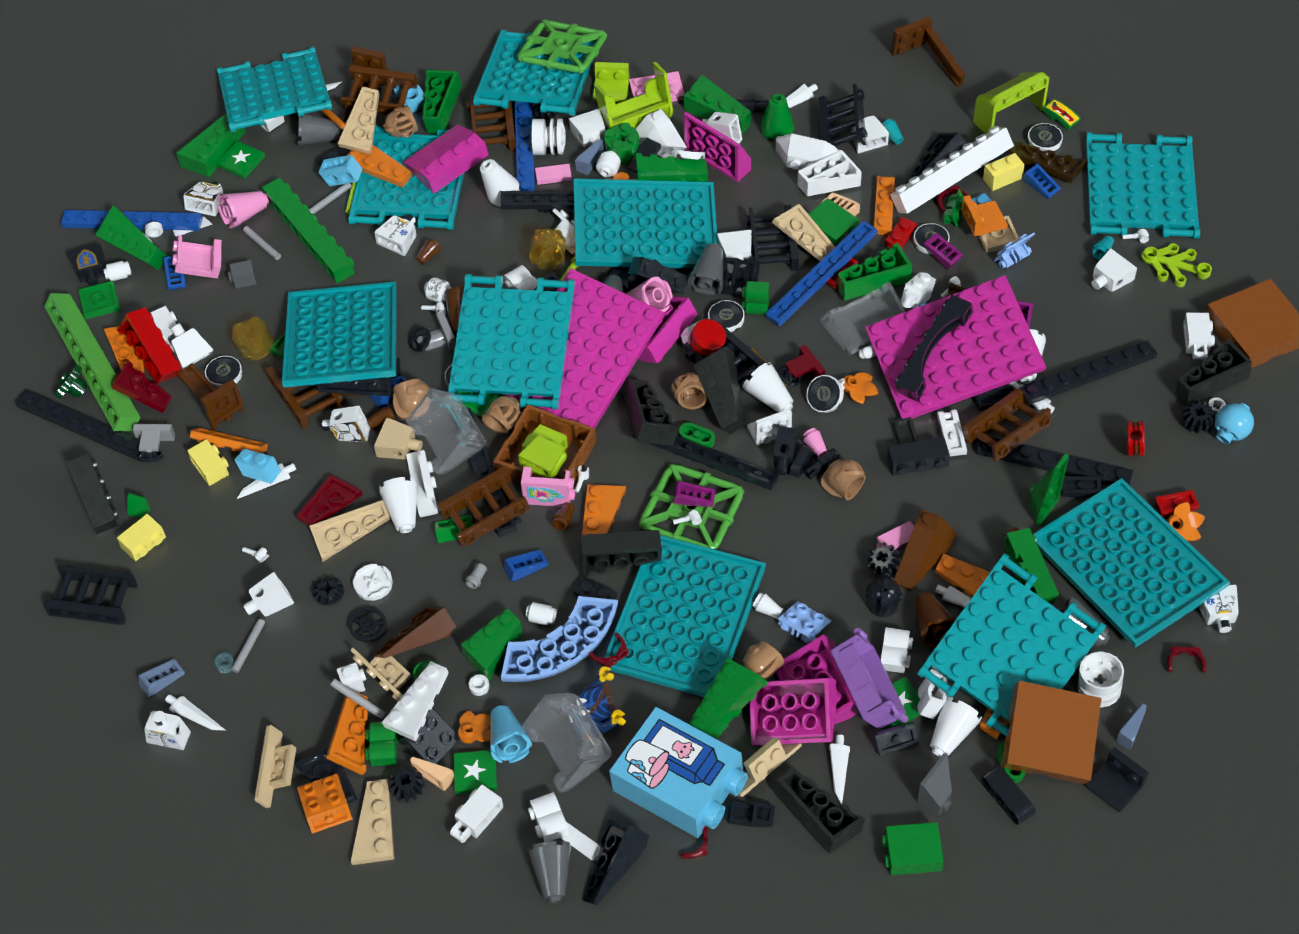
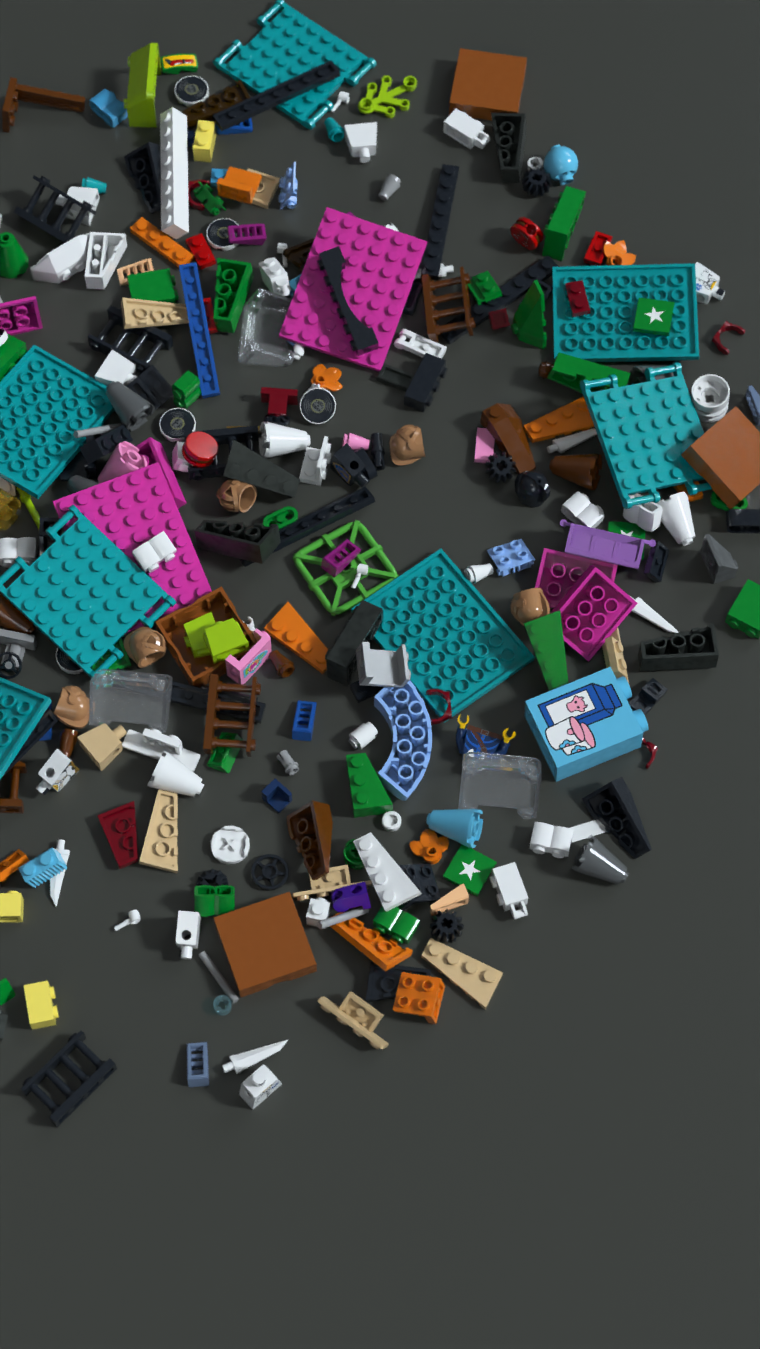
camera: 60 degrees left, 10 degrees up
(296, 658) = (265, 944): none -> dark orange tile
(309, 597) = (214, 900): none -> green brick
(380, 693) = (350, 897): none -> dark purple leg
(440, 585) = (276, 795): none -> dark blue panel
(583, 361) = (154, 552): none -> white brick
(604, 580) = (382, 666): none -> light grey panel
(661, 259) = (96, 430): none -> light grey bar
(971, 91) = (108, 107): none -> dark azure brick
(1032, 471) = (498, 319): none -> dark red tile
(1051, 441) = (484, 288): none -> green plate
(1086, 317) = (389, 186): none -> light grey cone
(1092, 188) = (276, 95): none -> black plate
(1105, 514) = (577, 298): none -> dark red plate
(1141, 582) = (653, 316): none -> green tile
(1175, 459) = (562, 222): none -> green wedge

